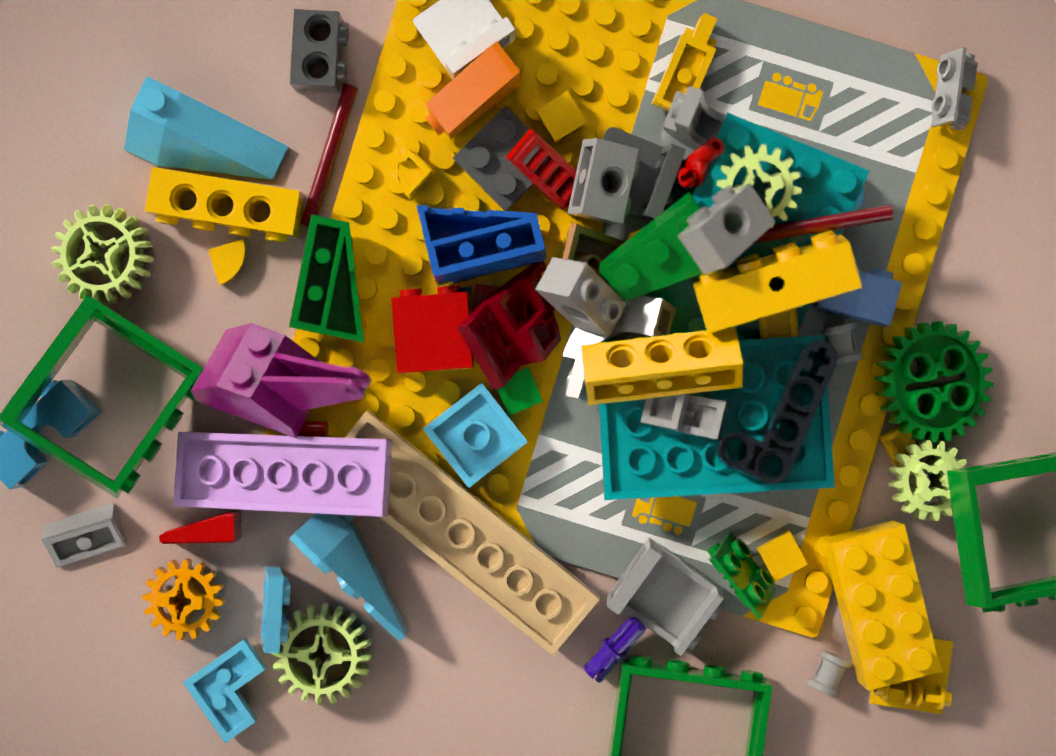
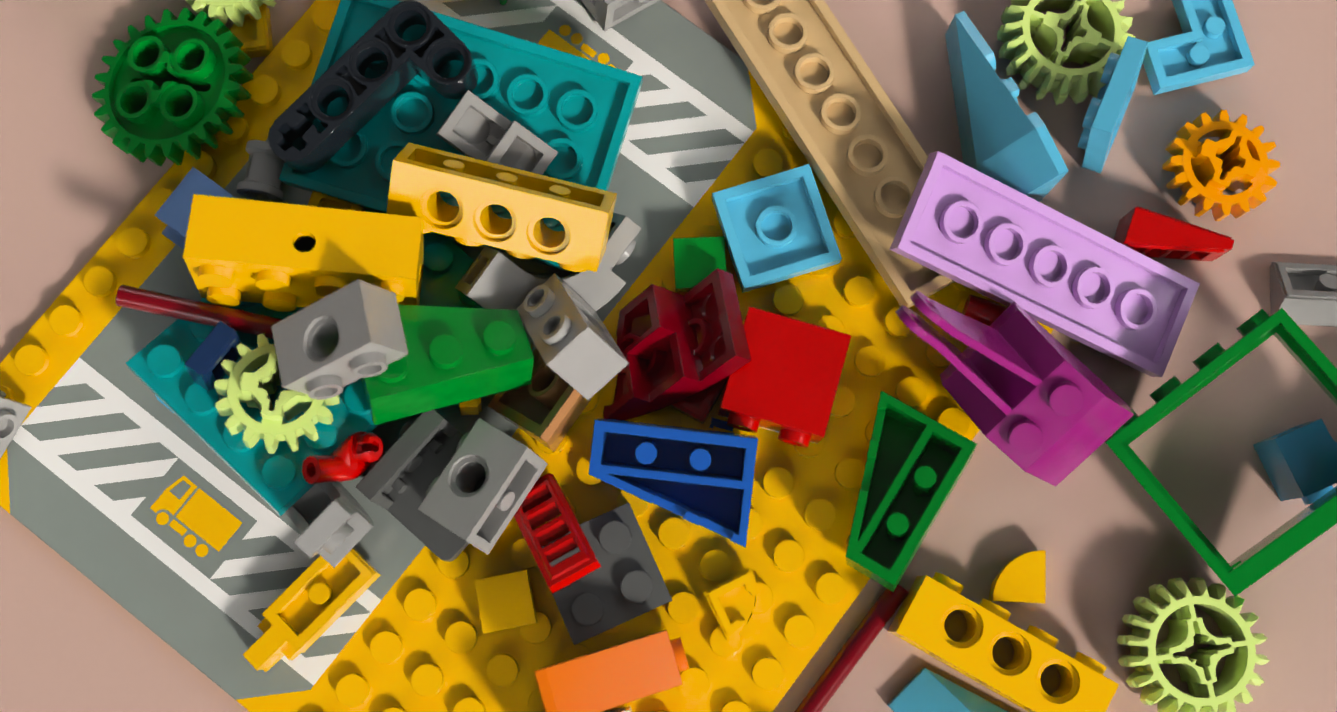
camera: 165 degrees left, 10 degrees down
(810, 191) = (206, 361): none -> dark blue tile

